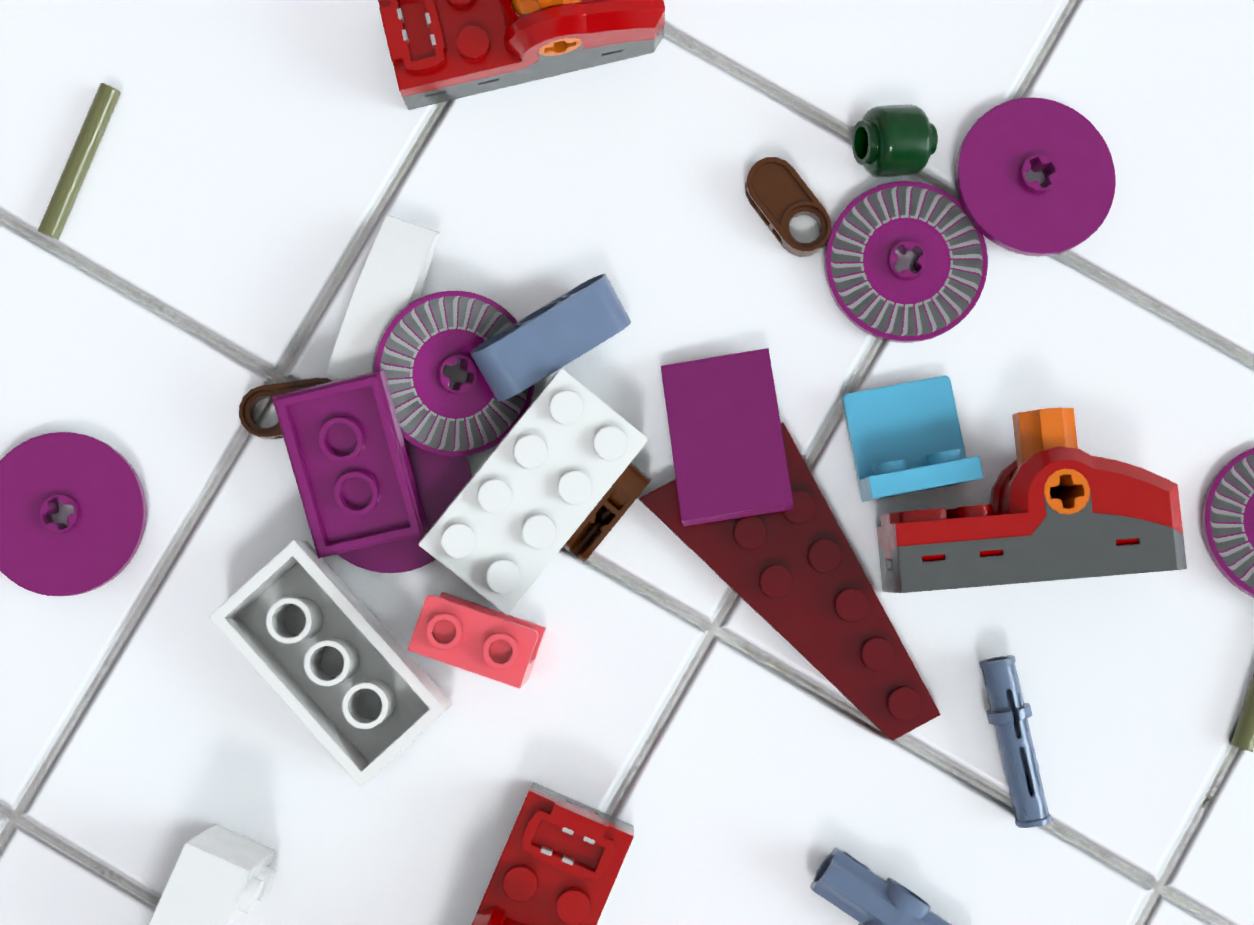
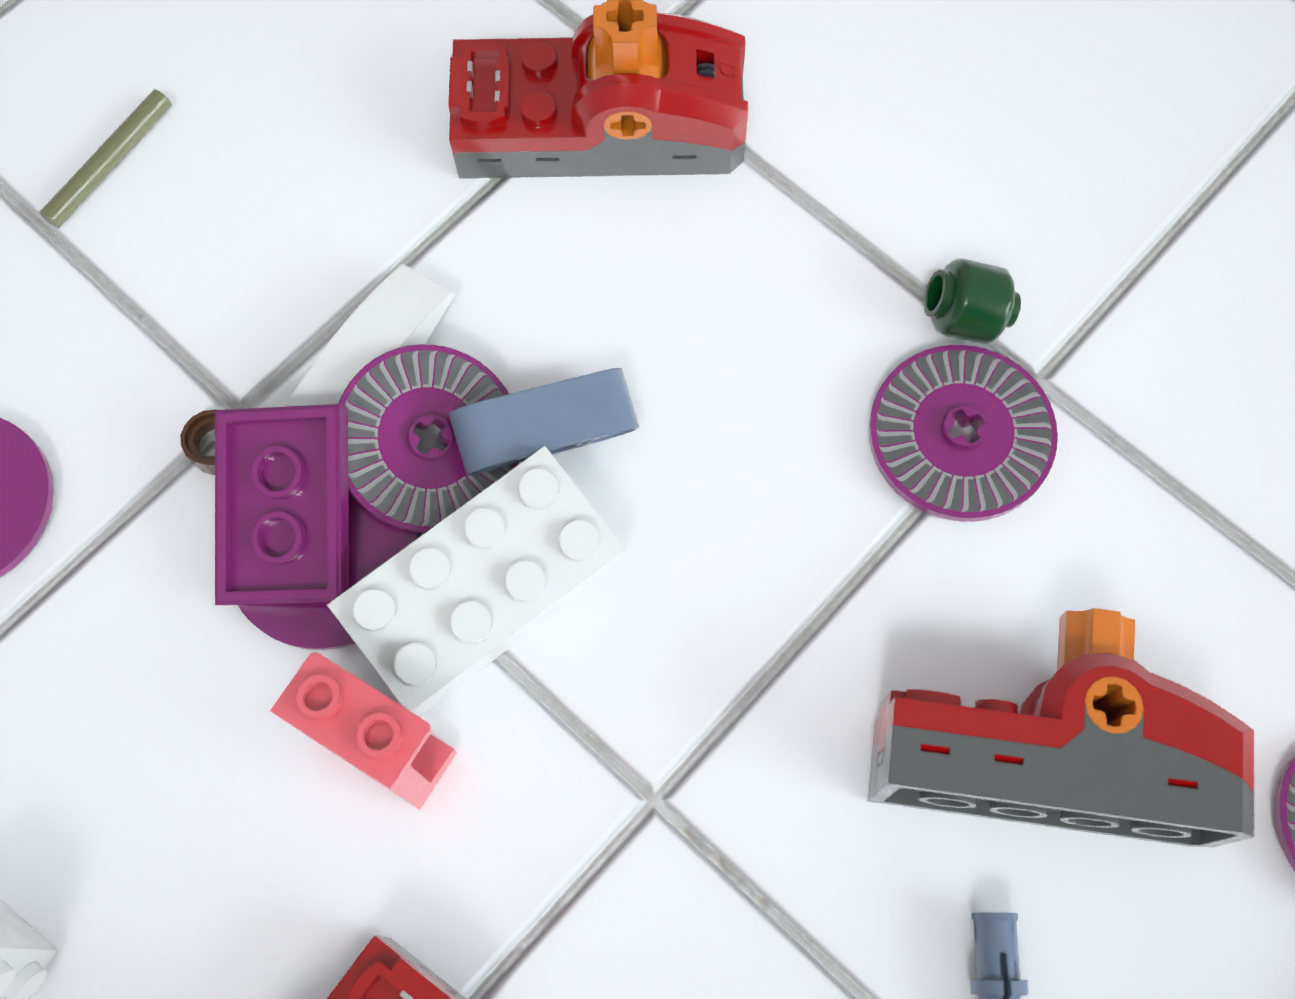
camera: 15 degrees right, 15 degrees down
(330, 661) = (191, 729): white brick -> none
(607, 512) = (559, 629): reddish brown piece -> none
(726, 437) = (717, 575): magenta tile -> none
(781, 195) = (837, 335): reddish brown piece -> none
(813, 593) = (758, 729): dark red wing -> none
(907, 439) = (930, 626): medium azure bracket -> none
(1033, 215) = (1104, 408): magenta piece -> none

